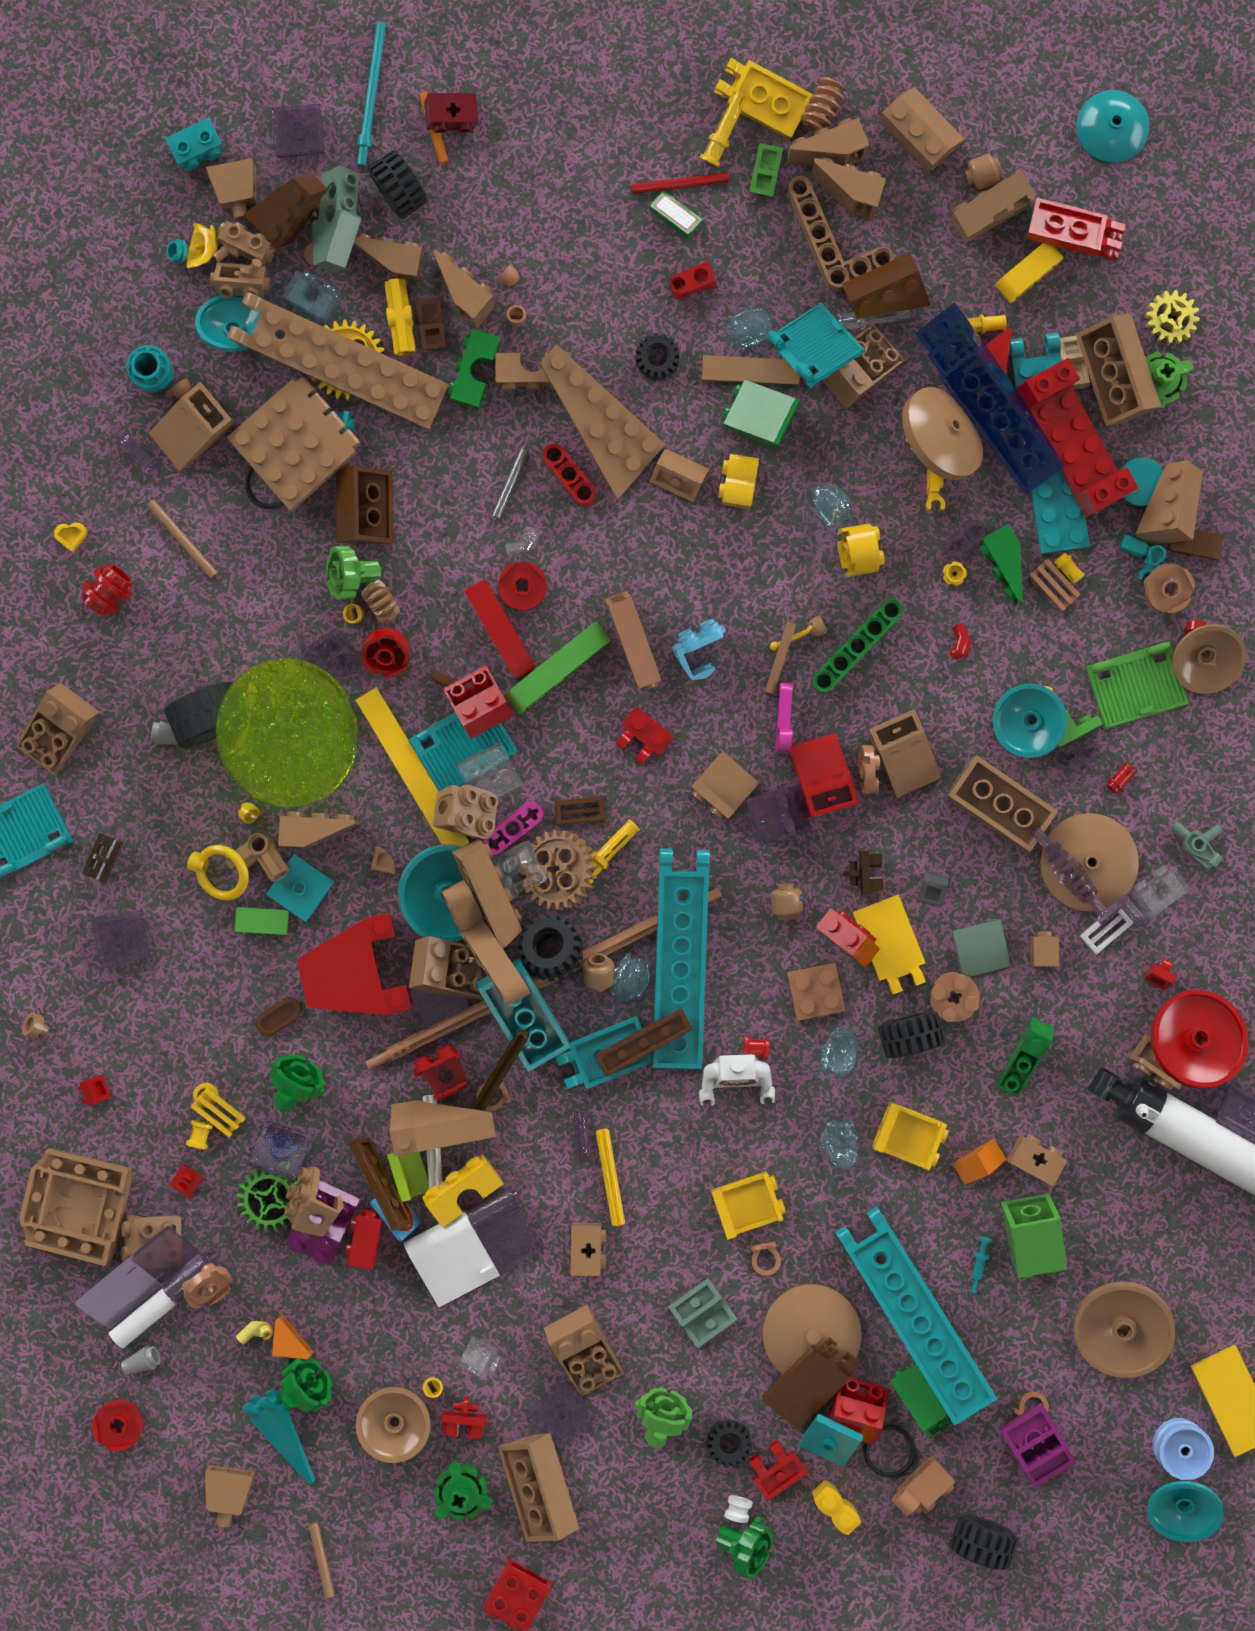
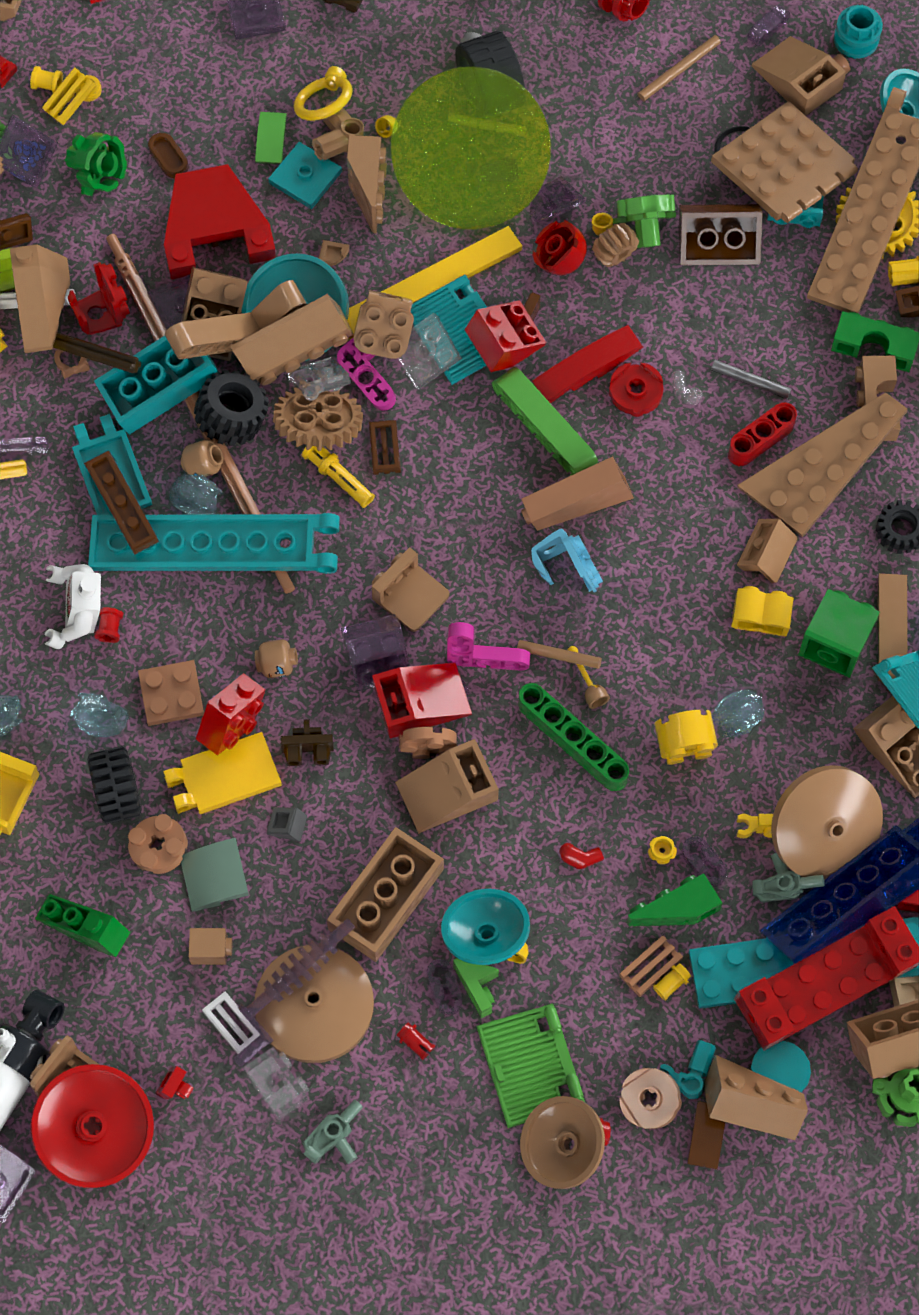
camera: 90 degrees right, 20 degrees down
(647, 731) = (473, 517): red plate -> none
(986, 473) = (785, 884): none -> sand green piece

